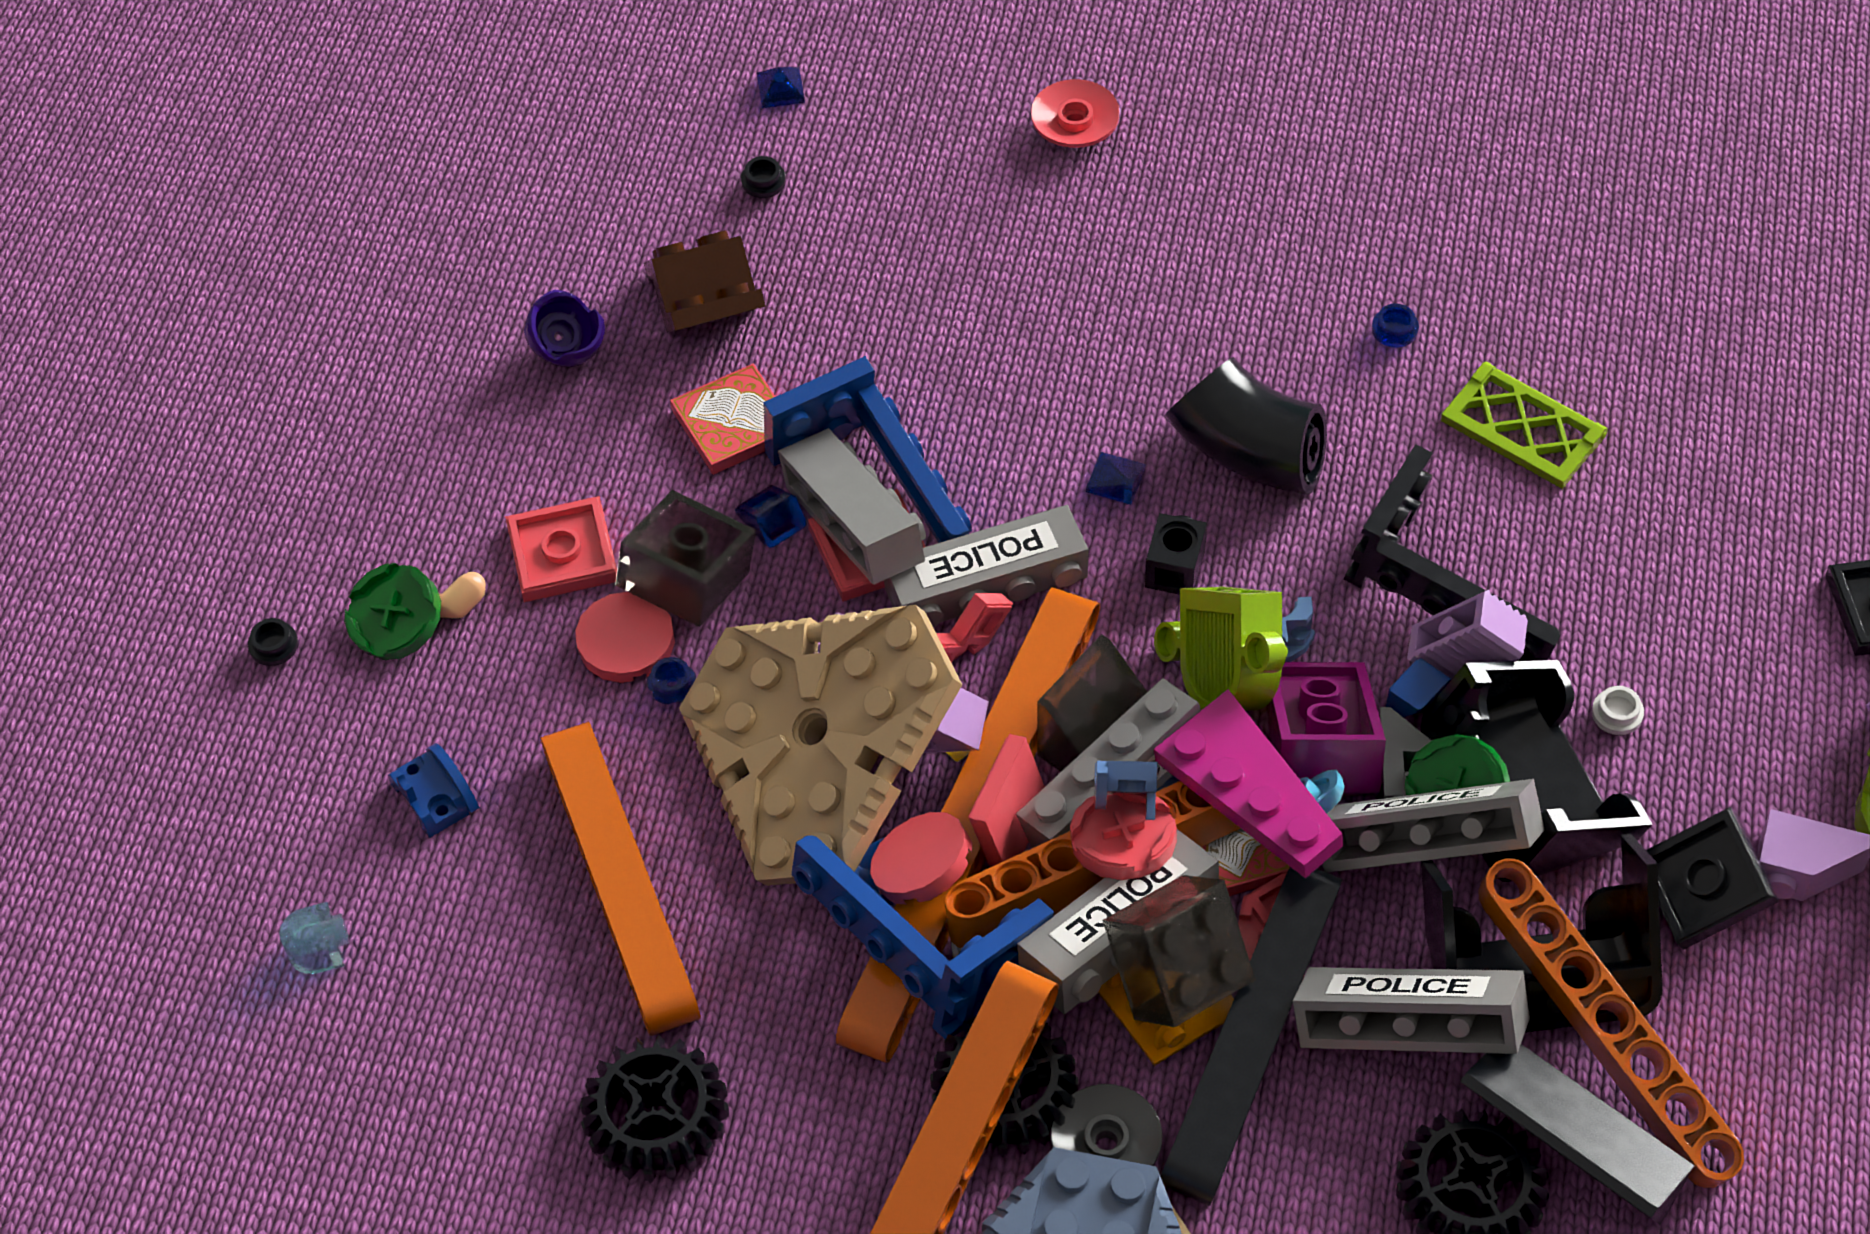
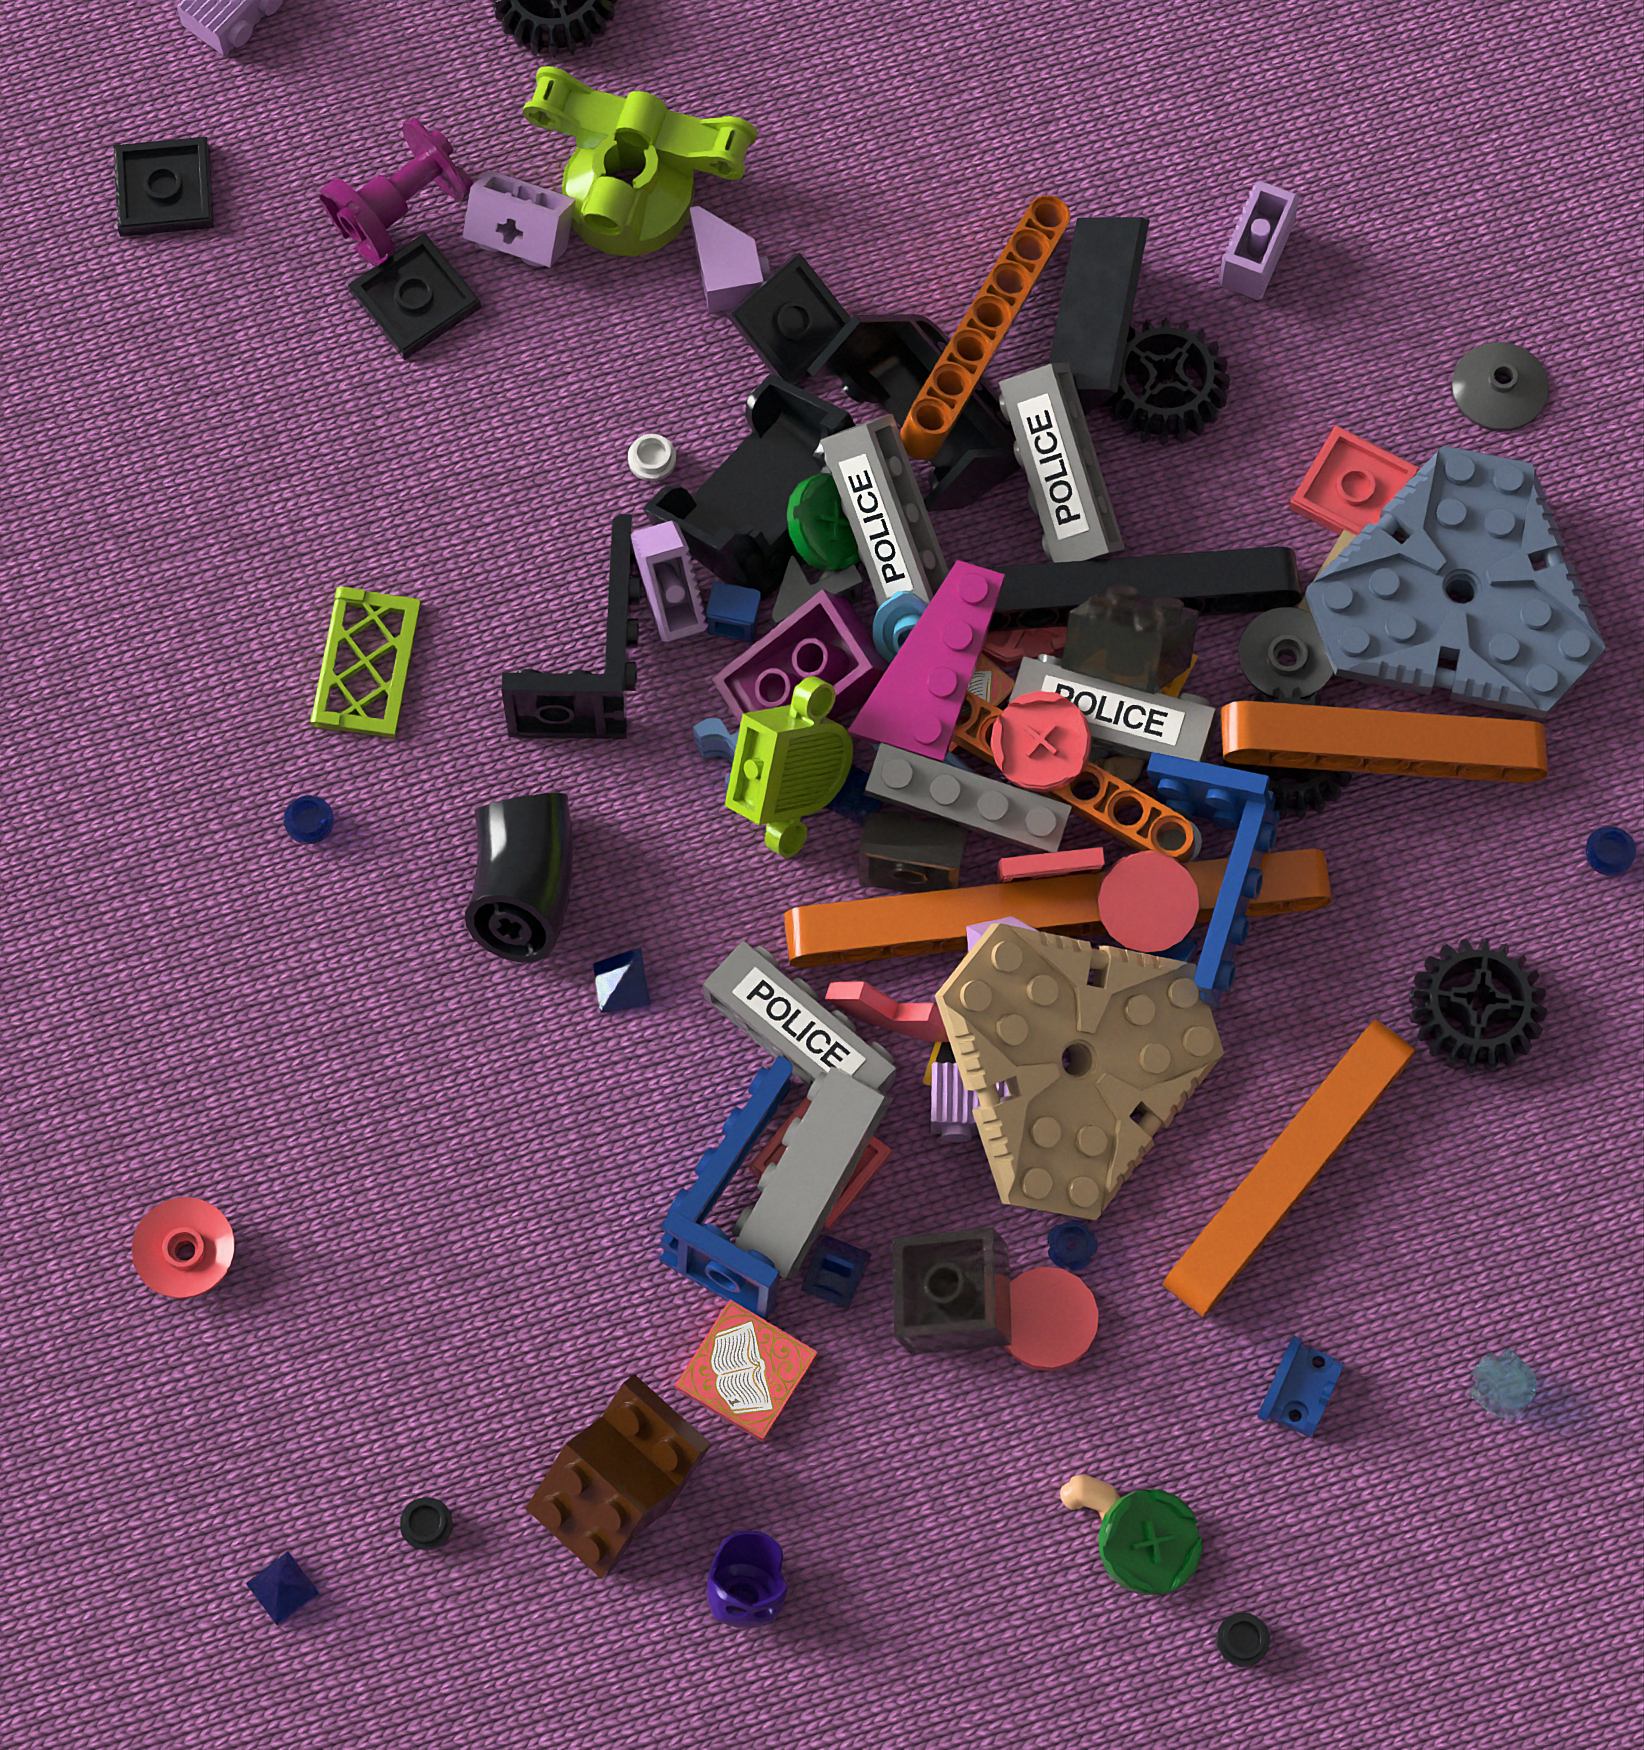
camera: 120 degrees left, 15 degrees up
(561, 549) = (984, 1440): coral tile -> none
(1126, 778) = (1011, 747): medium blue piece -> none
(1170, 569) = (699, 859): black brick -> none

